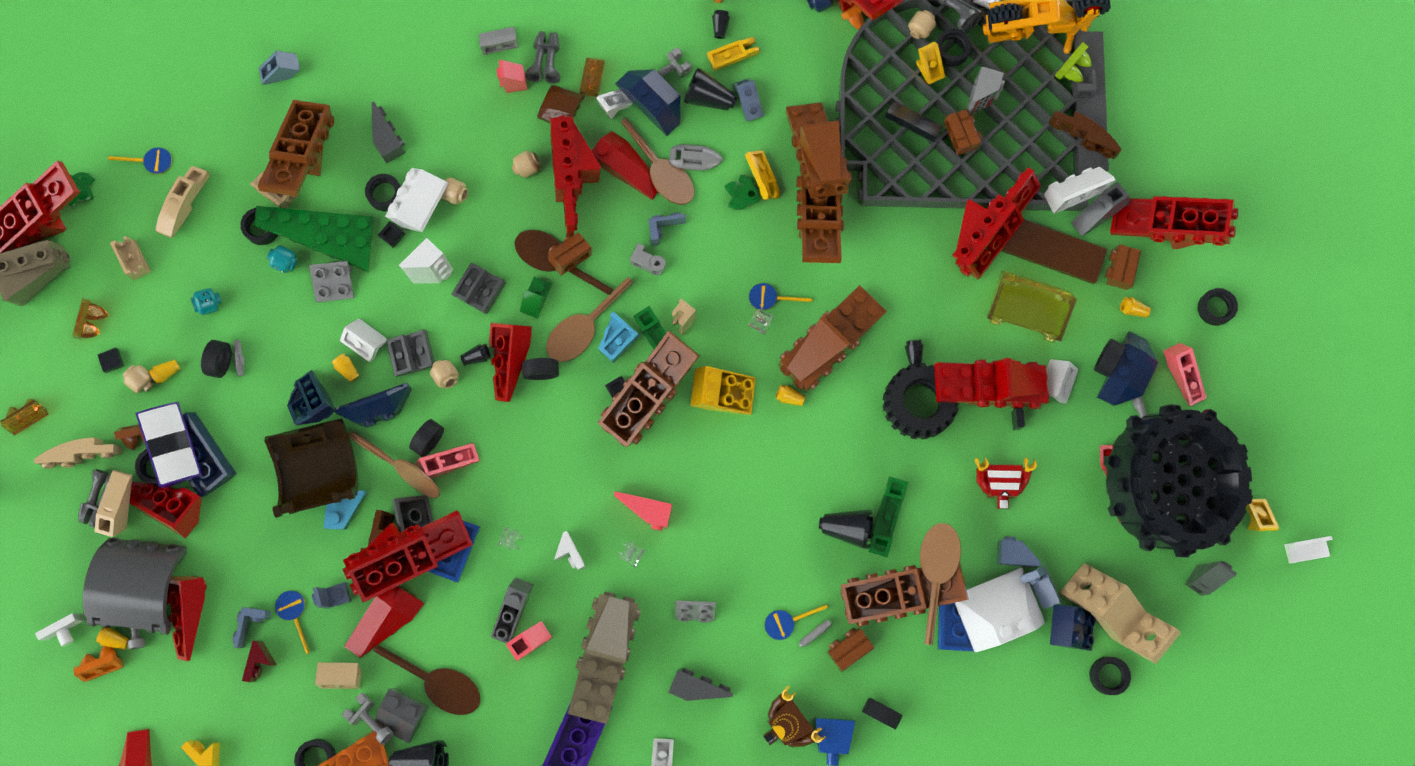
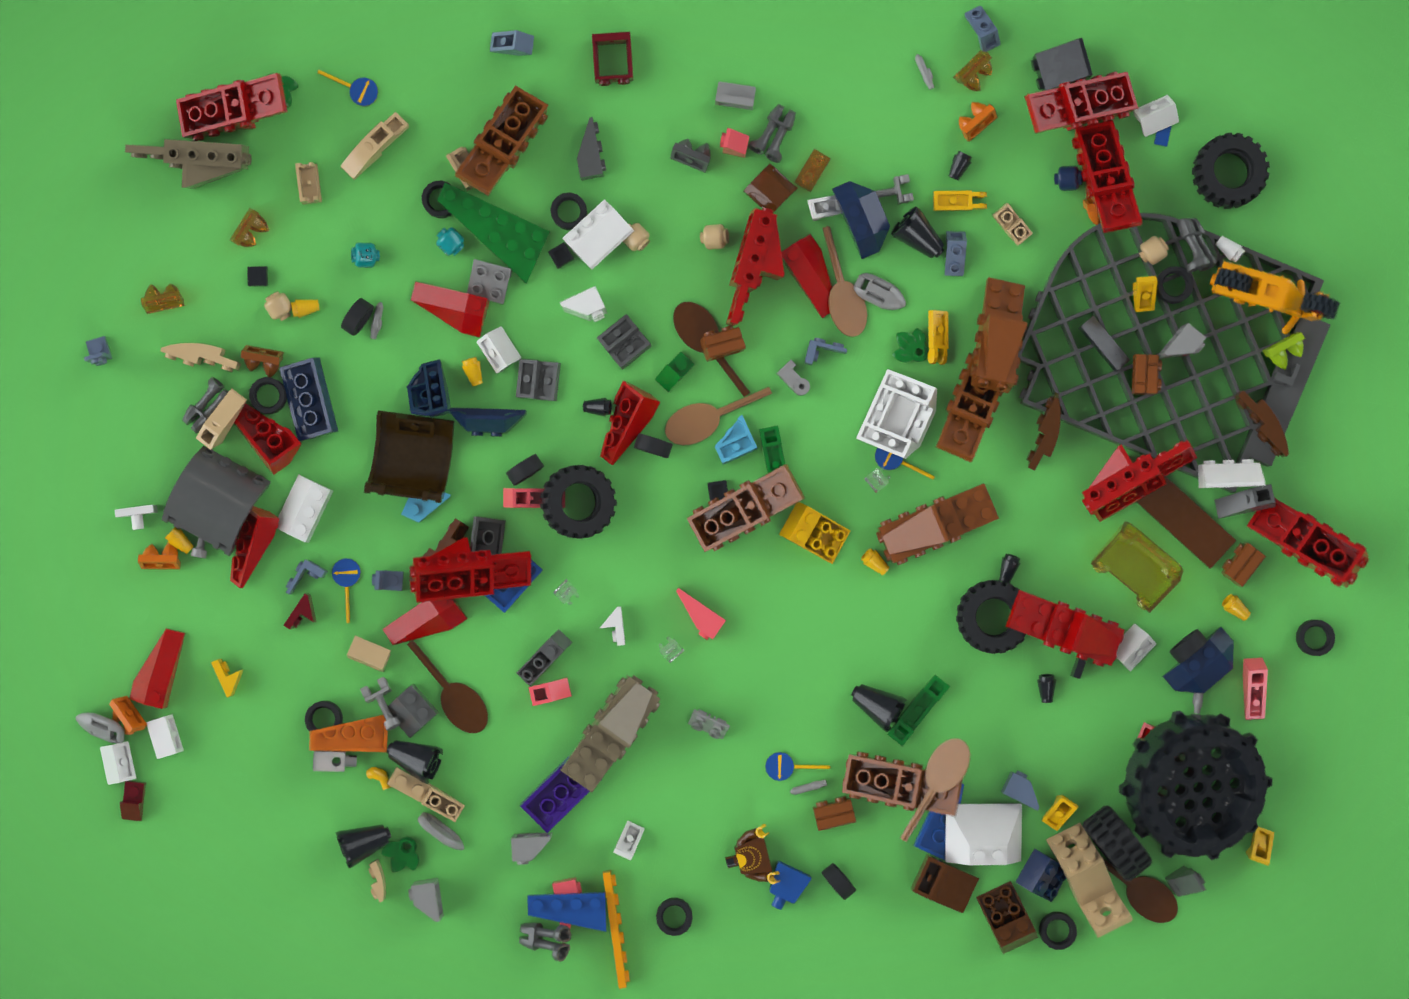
camera: 20 degrees right, 10 degrees up
(168, 444) = (288, 383): white slope -> none
(227, 559) = (303, 508): none -> white slope
(311, 316) = (456, 308): none -> red wedge
(367, 32) = (608, 39): none -> dark red window
(408, 471) = (496, 494): medium nougat piece -> none
(444, 374) = (562, 413): tan head -> none
(477, 104) = (696, 158): none -> dark grey tile
(488, 421) = (603, 496): none -> black tyre
(685, 316) = (808, 446): tan hinge -> none
(693, 688) = (680, 792): dark grey slope -> none
(757, 254) = (899, 415): none -> white slope
(788, 57) = (1012, 224): none -> tan slope
(896, 208) = (1048, 425): none -> reddish brown slope
(983, 674) = (944, 884): none -> reddish brown slope
(997, 448) = (1046, 687): none -> black cone
(1003, 480) = (1038, 719): red torso -> none
(1042, 586) = (1032, 828): sand blue bracket -> none
(1057, 683) = (1007, 917): none -> reddish brown slope
(1062, 559) = (1059, 812): none -> yellow slope
(1131, 564) = (1117, 843): none -> black tyre
(1180, 608) = (1148, 897): none -> reddish brown piece
(1307, 549) = (1291, 893): white panel -> none

